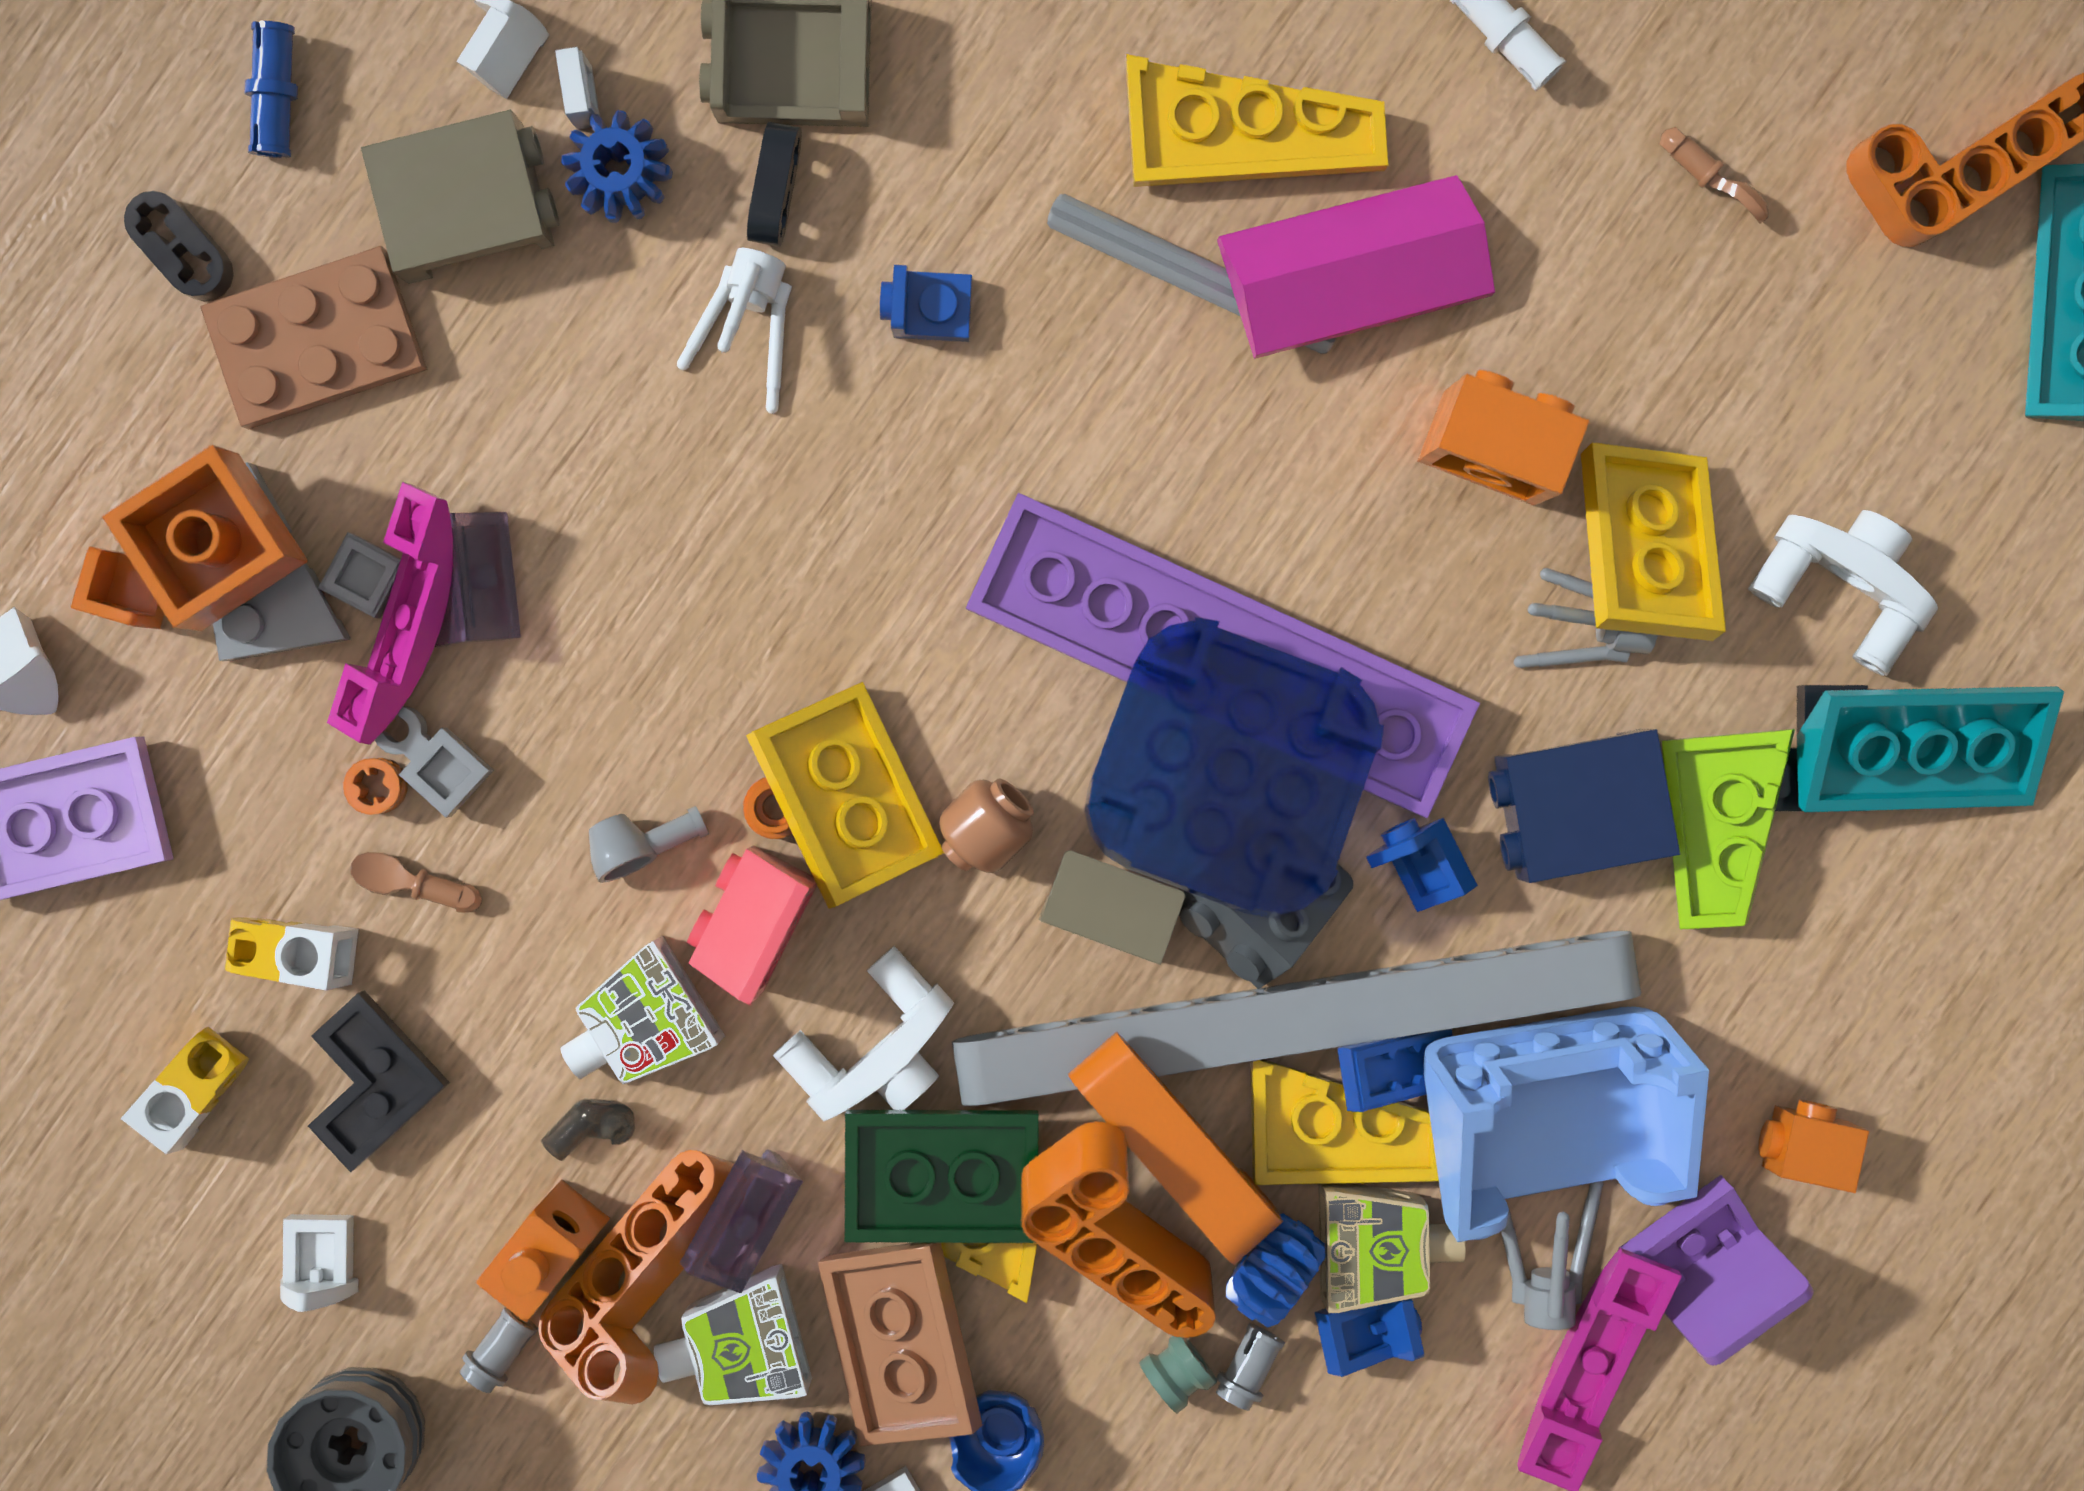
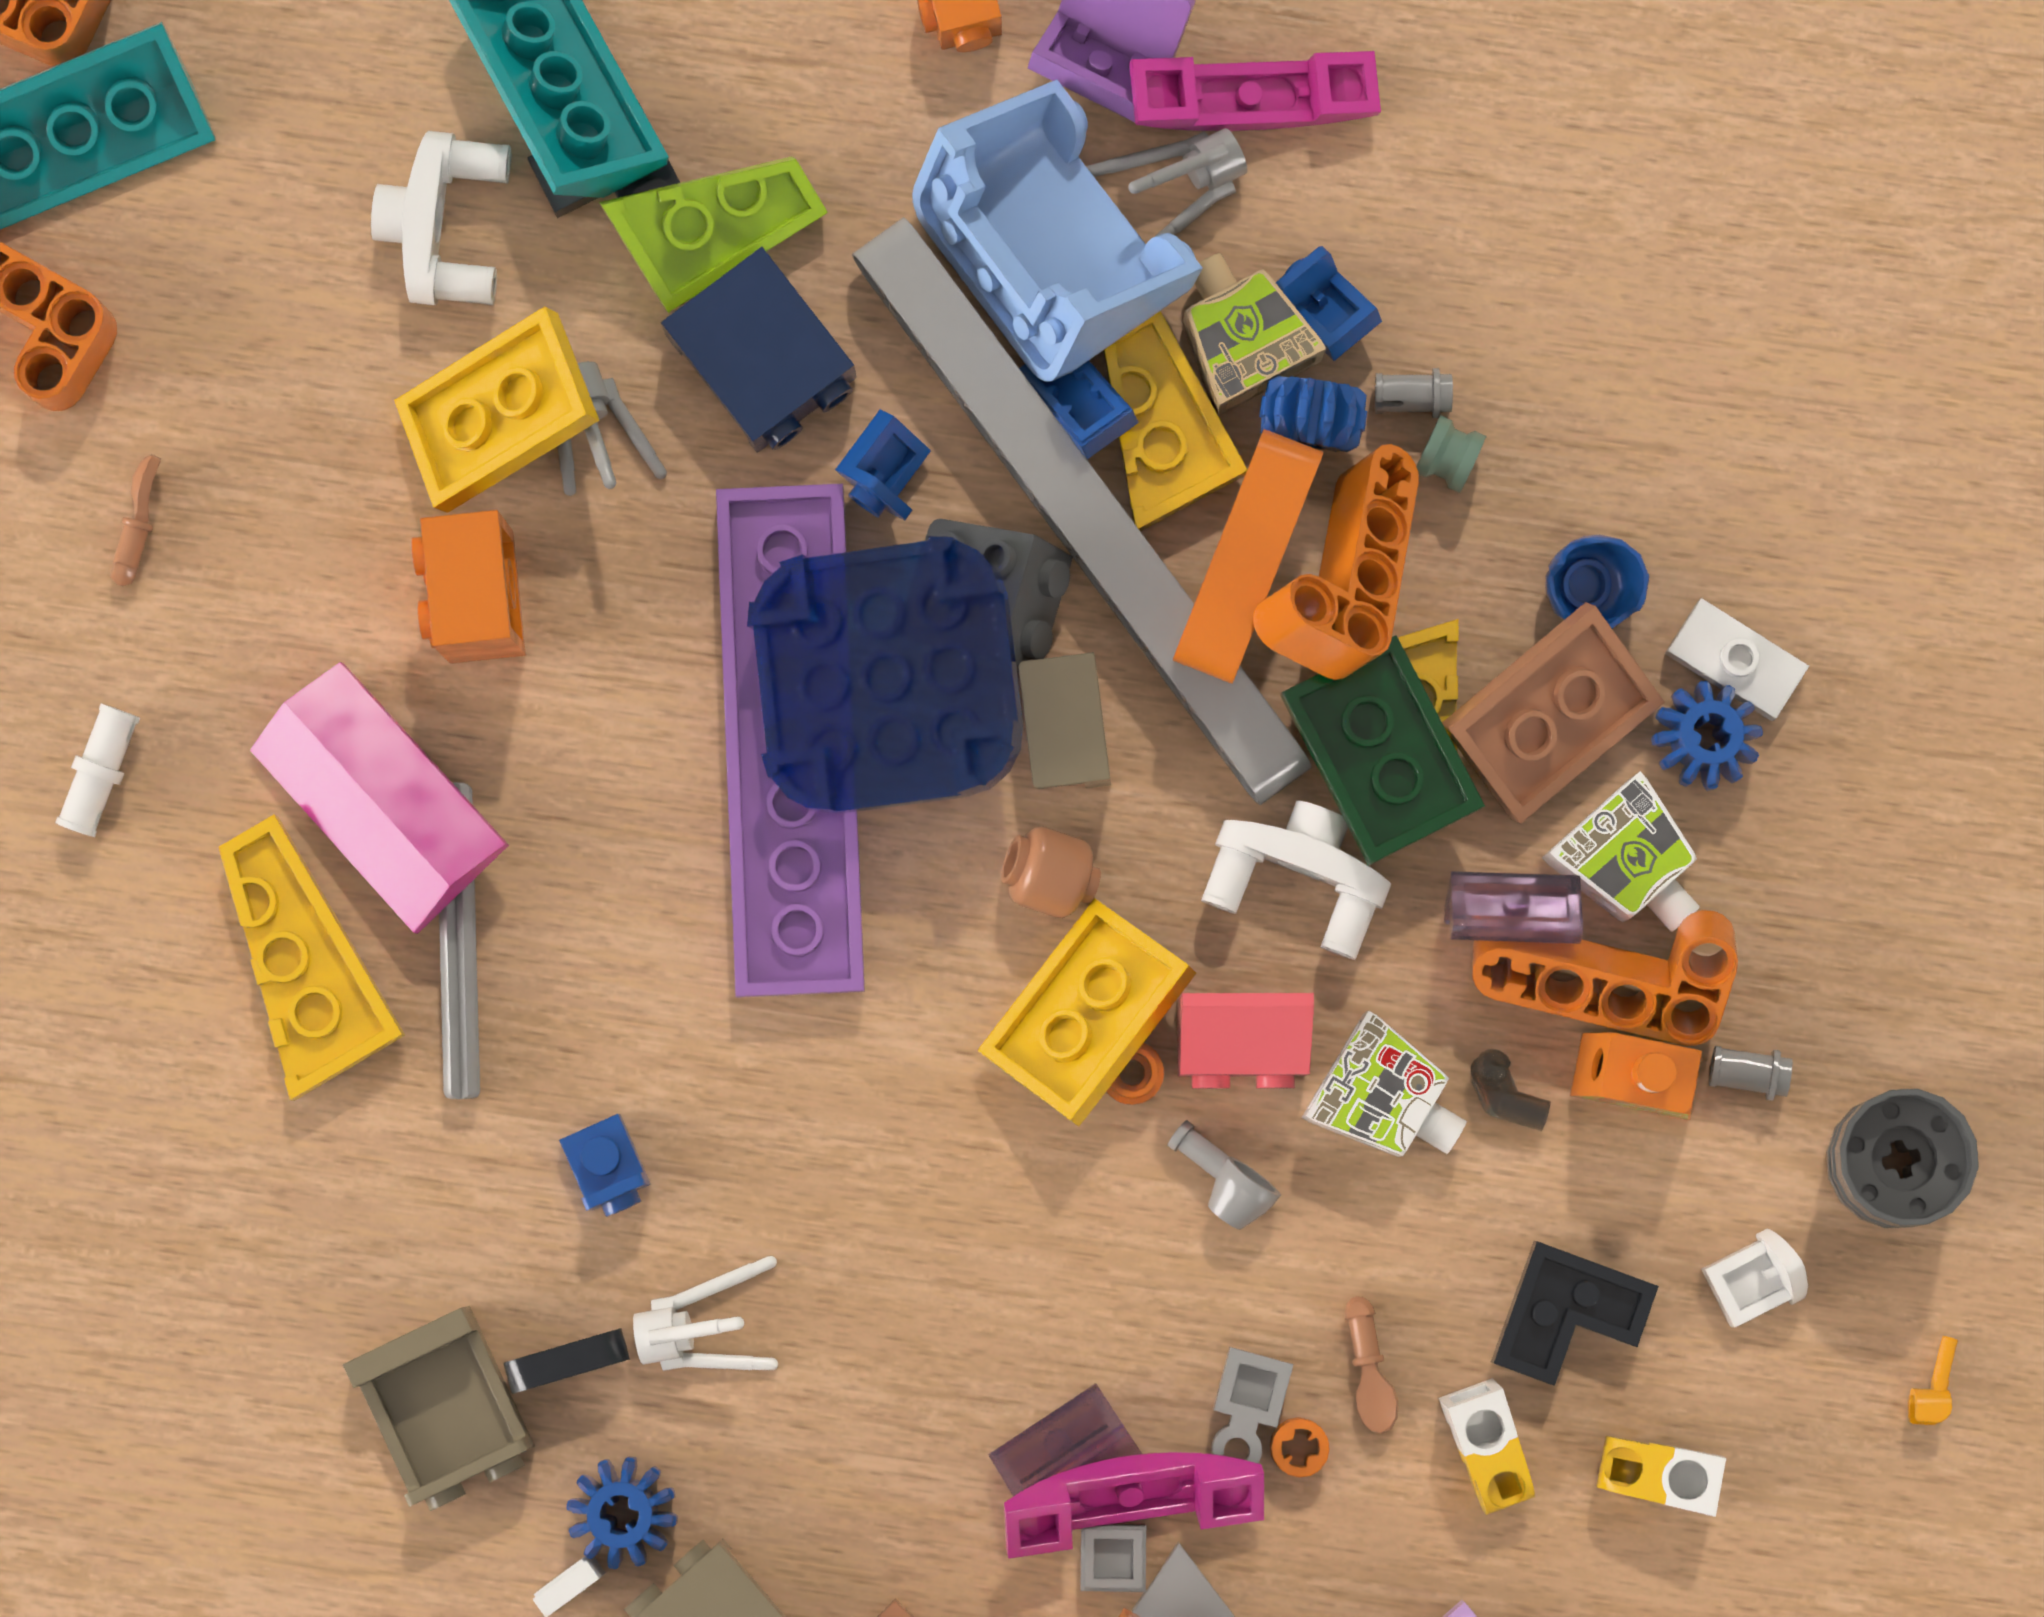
camera: 120 degrees left, 5 degrees down
(130, 1360) = (1934, 1404): none -> light orange hand

